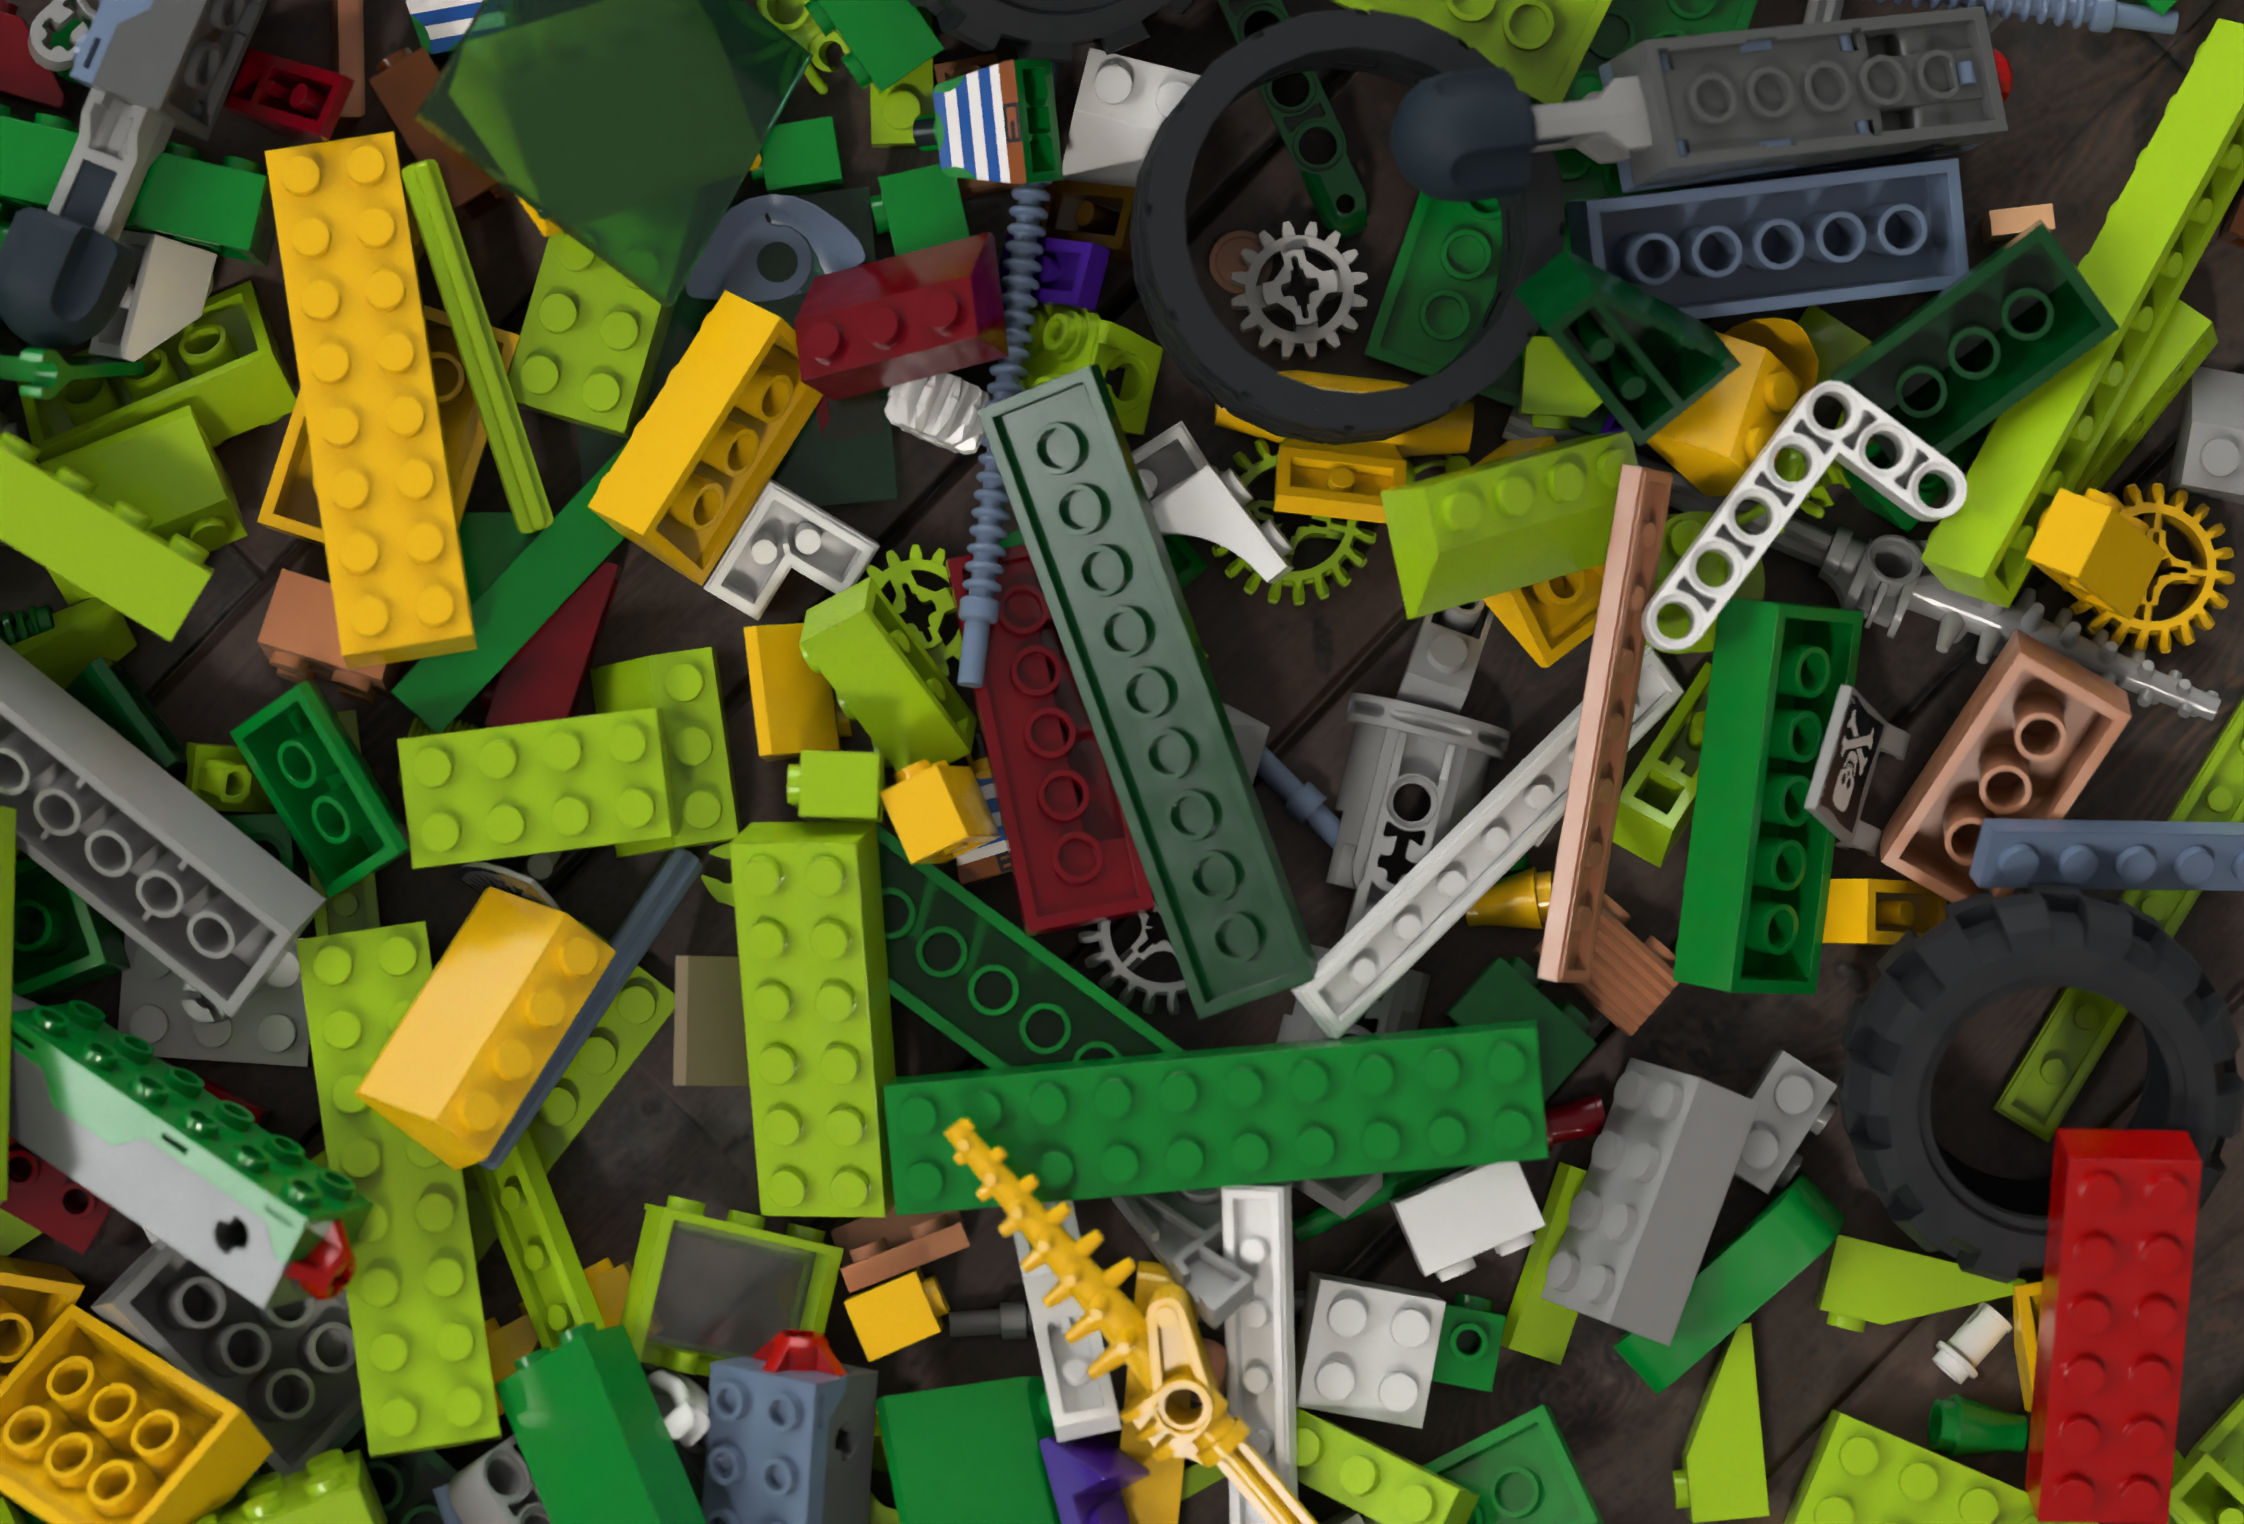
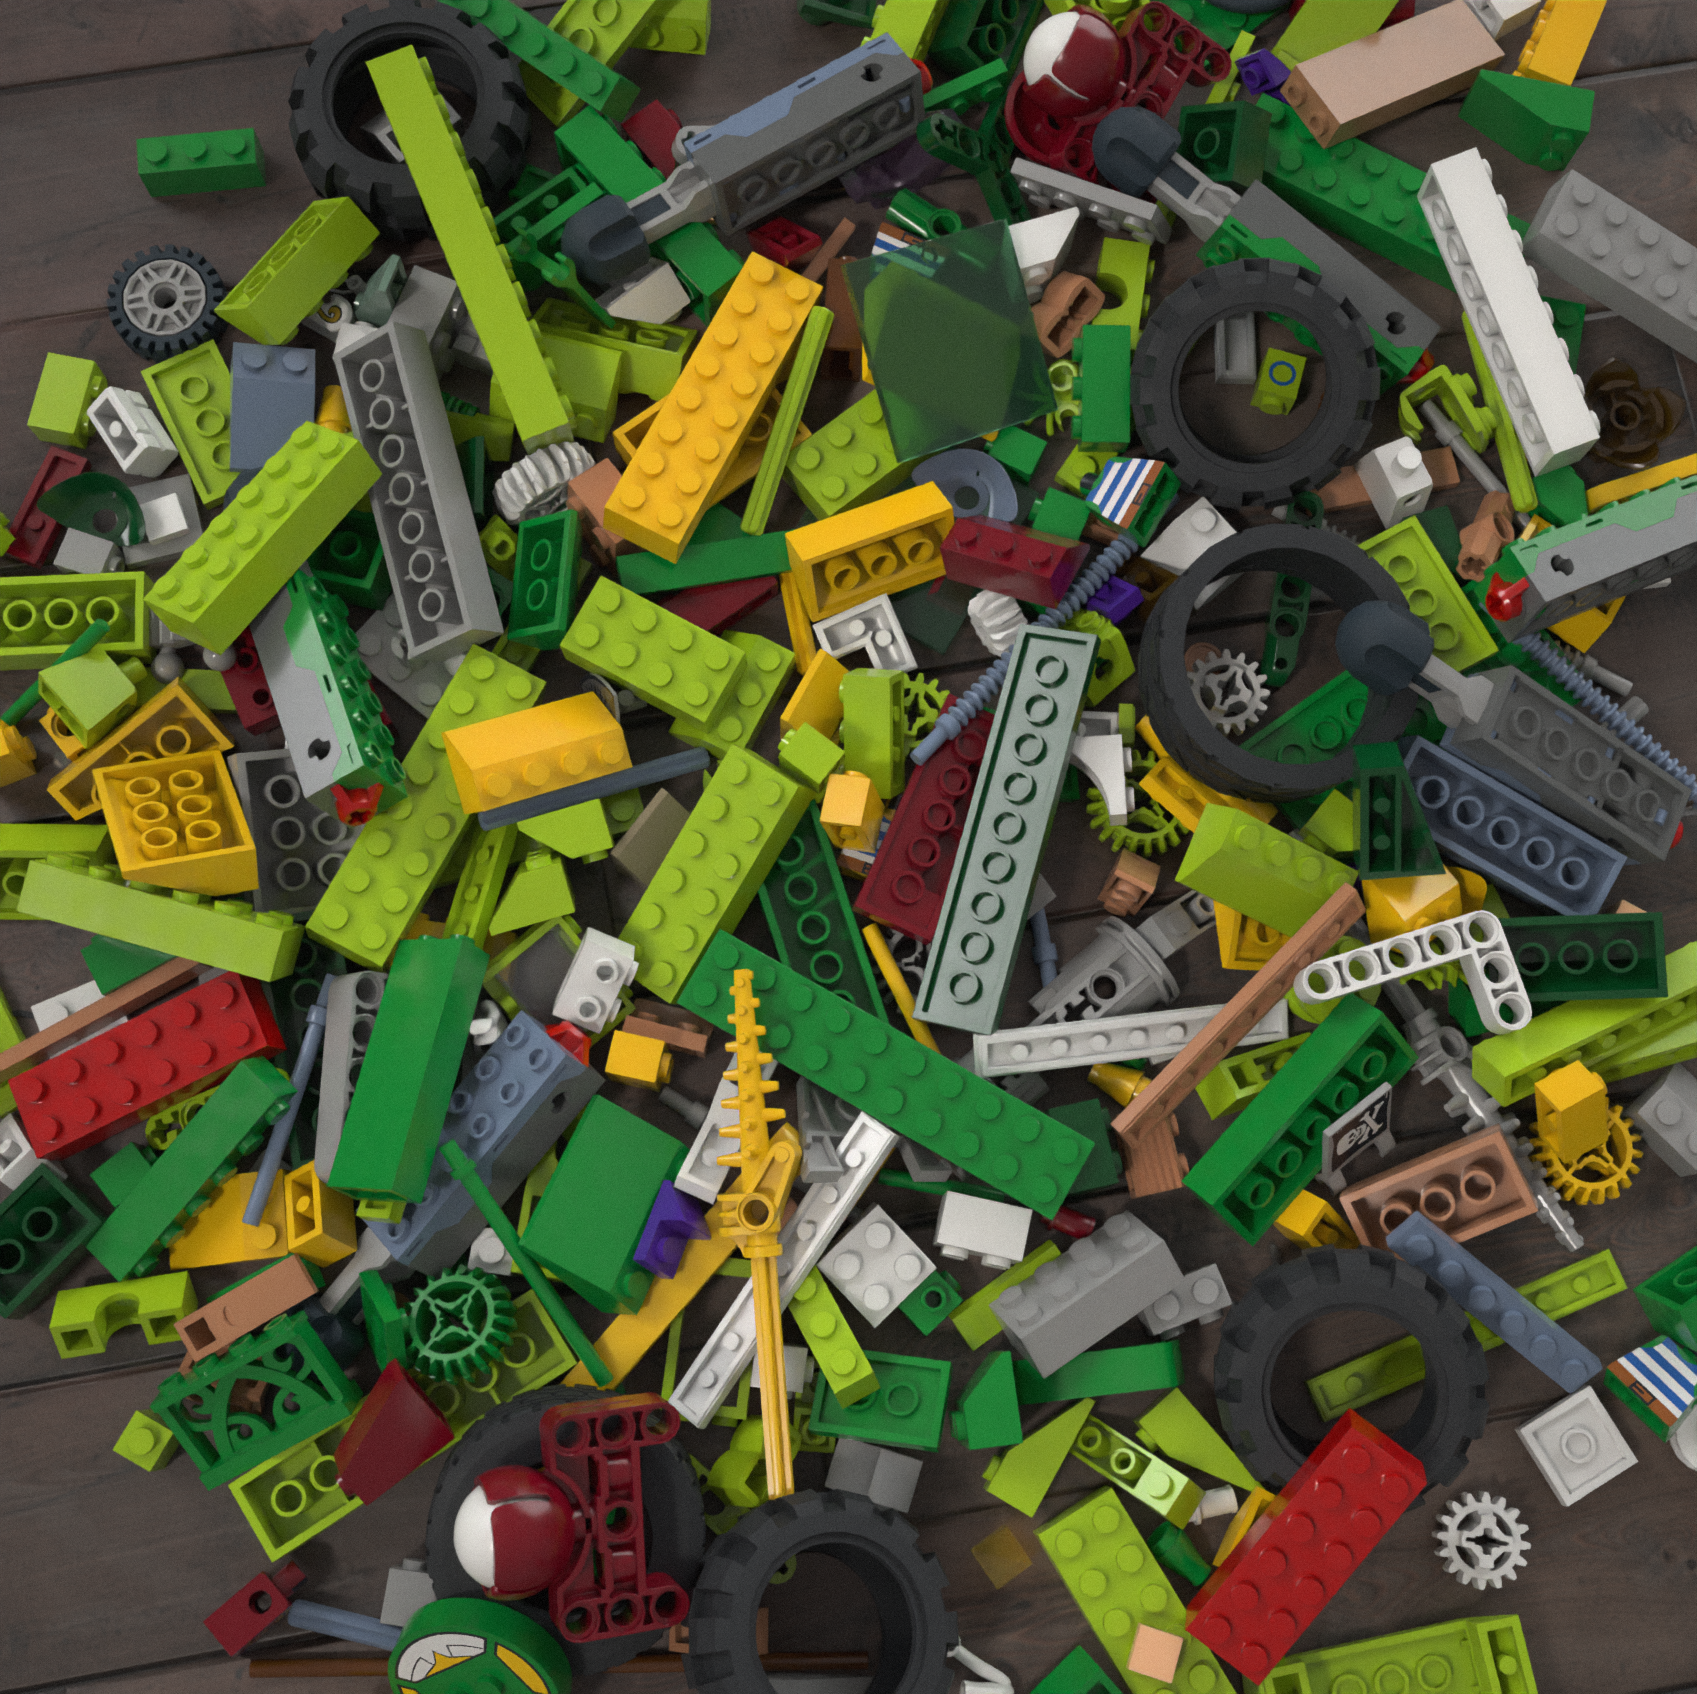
camera: 30 degrees right, 10 degrees down
(217, 654) = (540, 482): none -> white gear
(604, 1090) = (573, 831): none -> lime slope
(613, 1201) = (535, 892): none -> lime slope
(686, 599) = (798, 623): none -> yellow axle
(773, 1257) = (595, 980): none -> white brick
(1157, 989) = (897, 985): none -> yellow bar
(1203, 432) = (1126, 724): none -> lime tile
(1349, 638) = (1129, 884): none -> nougat slope
(1624, 1429) = (988, 1406): none -> green slope
(1858, 1368) = (1137, 1471): none -> lime slope

